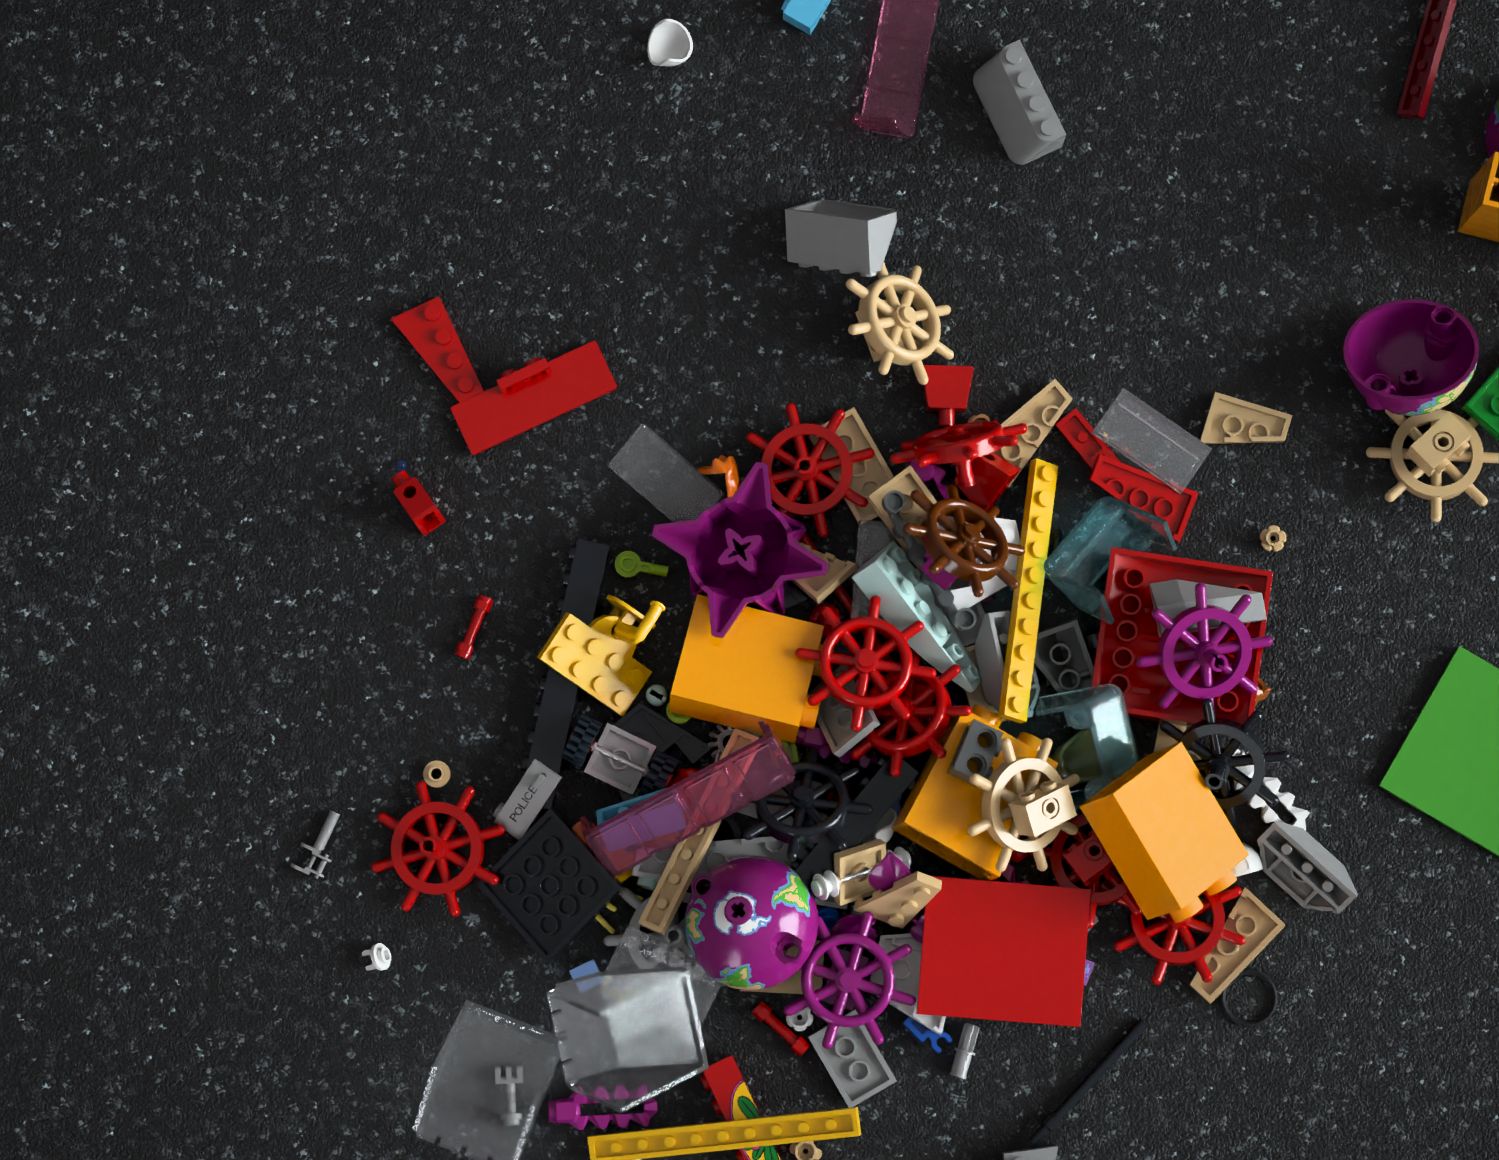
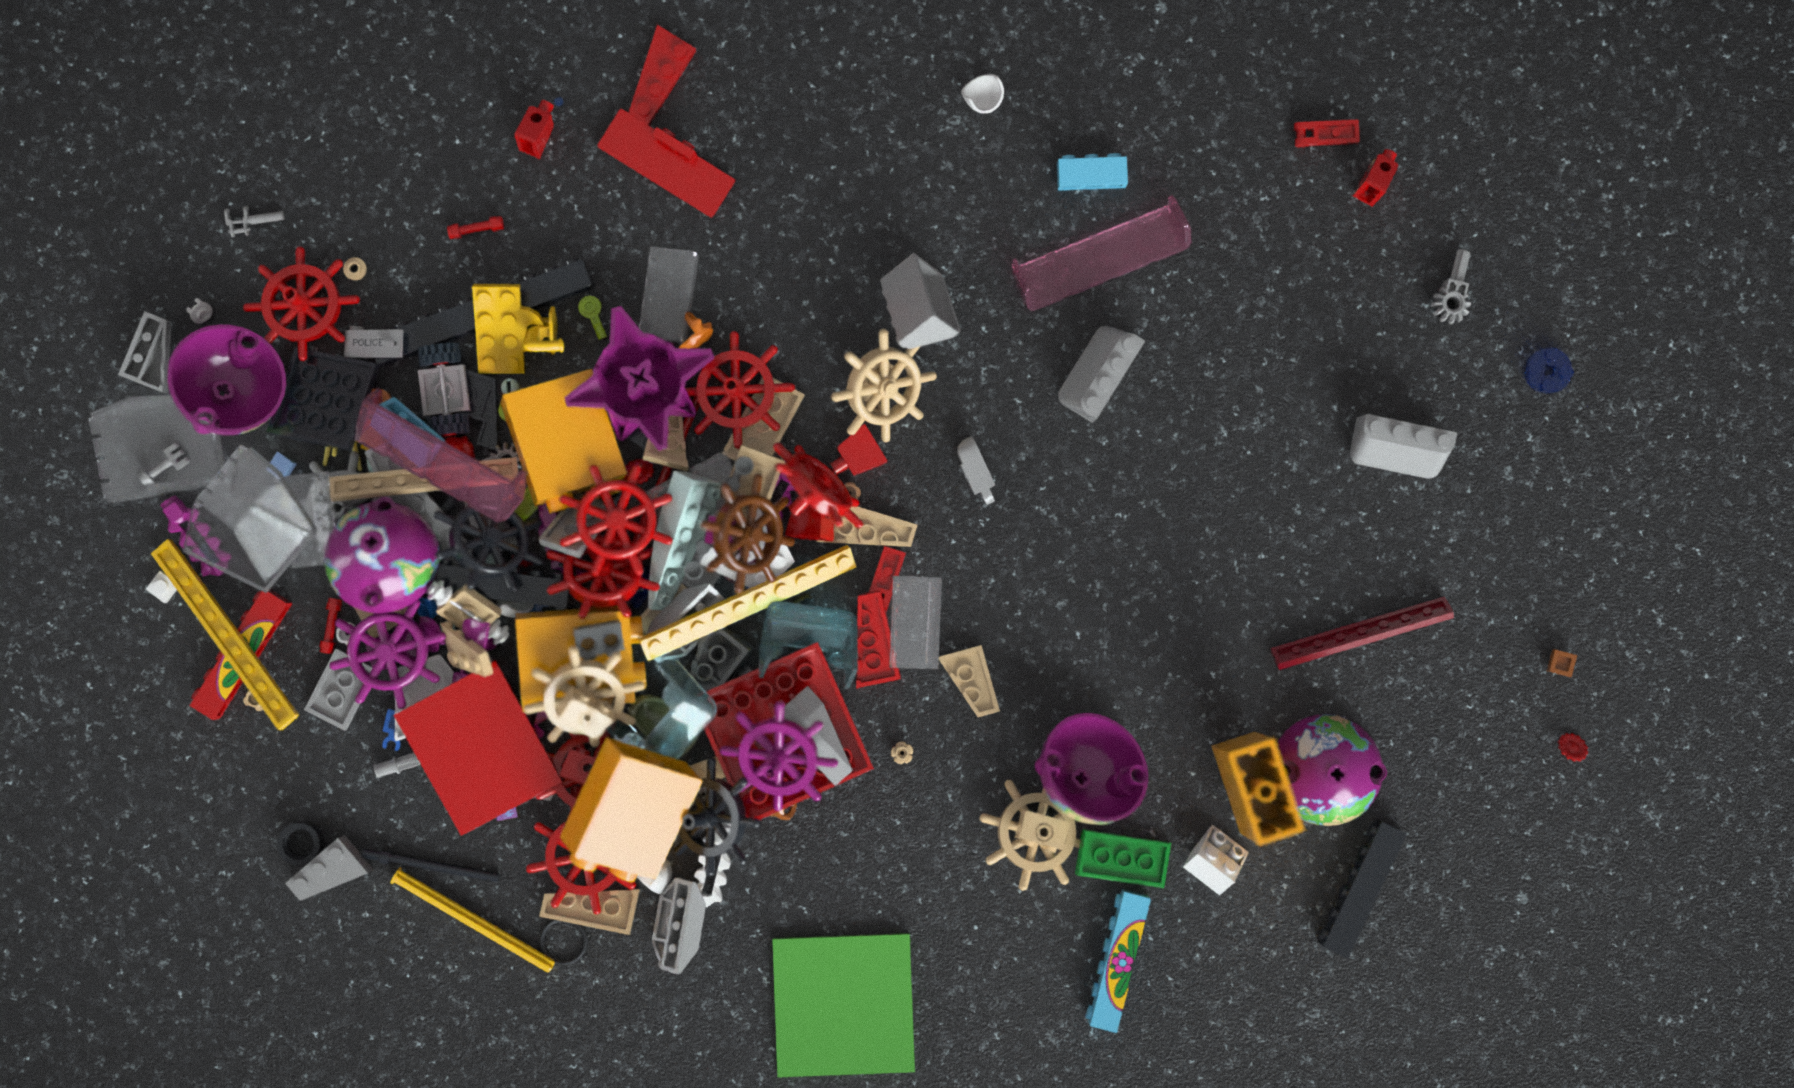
camera: 50 degrees right, 5 degrees up
(389, 1034) = (149, 353): none -> light grey wedge
(483, 974) = (210, 364): none -> magenta piece
(1036, 287) = (975, 469): none -> light grey piece
(1171, 1075) = (473, 920): none -> yellow axle

